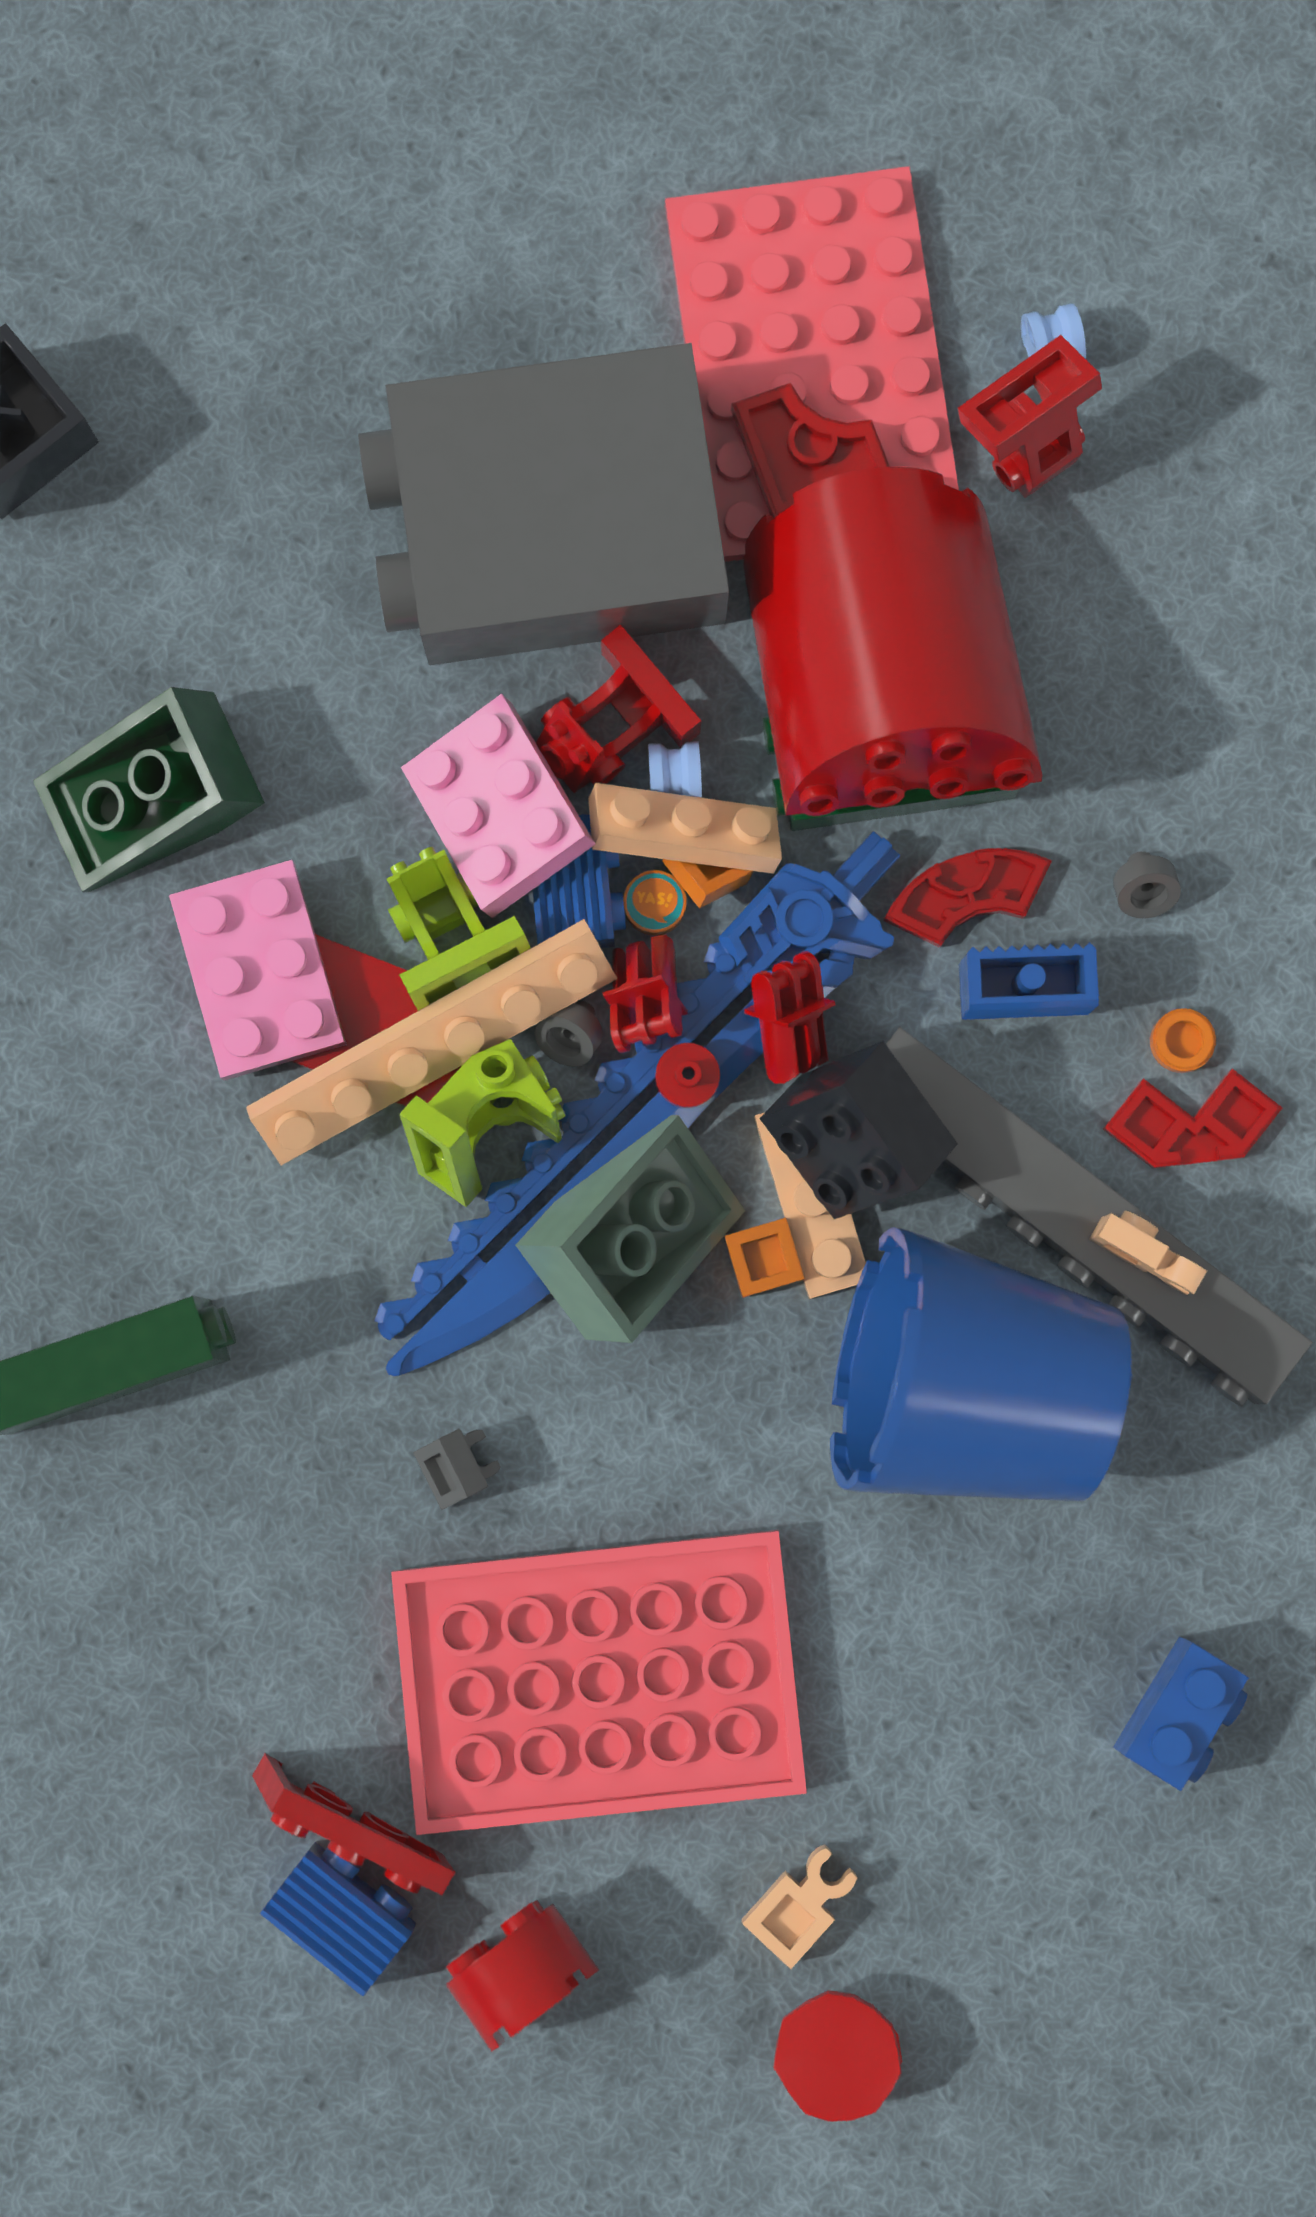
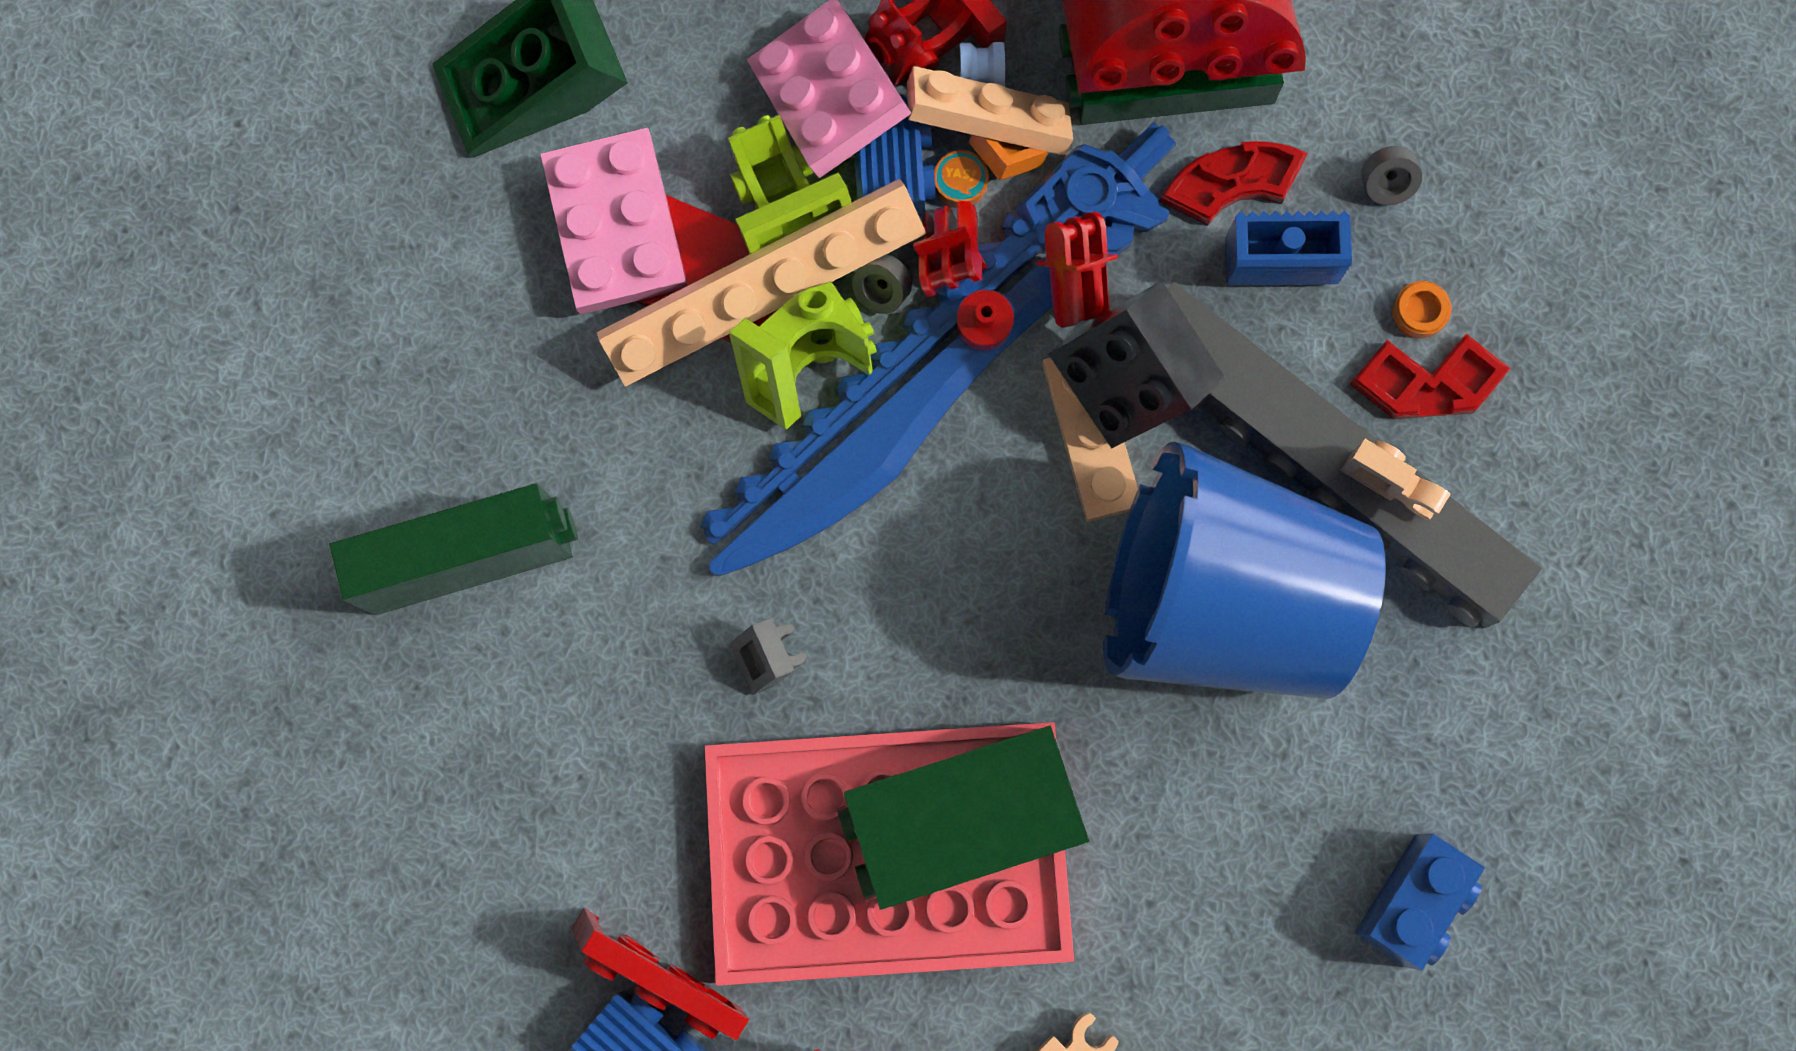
camera: 10 degrees right, 5 degrees down
(631, 1233) = (931, 453): sand green slope -> none
(679, 1646) = (962, 818): none -> dark green brick
(764, 1257) = (1048, 482): orange plate -> none

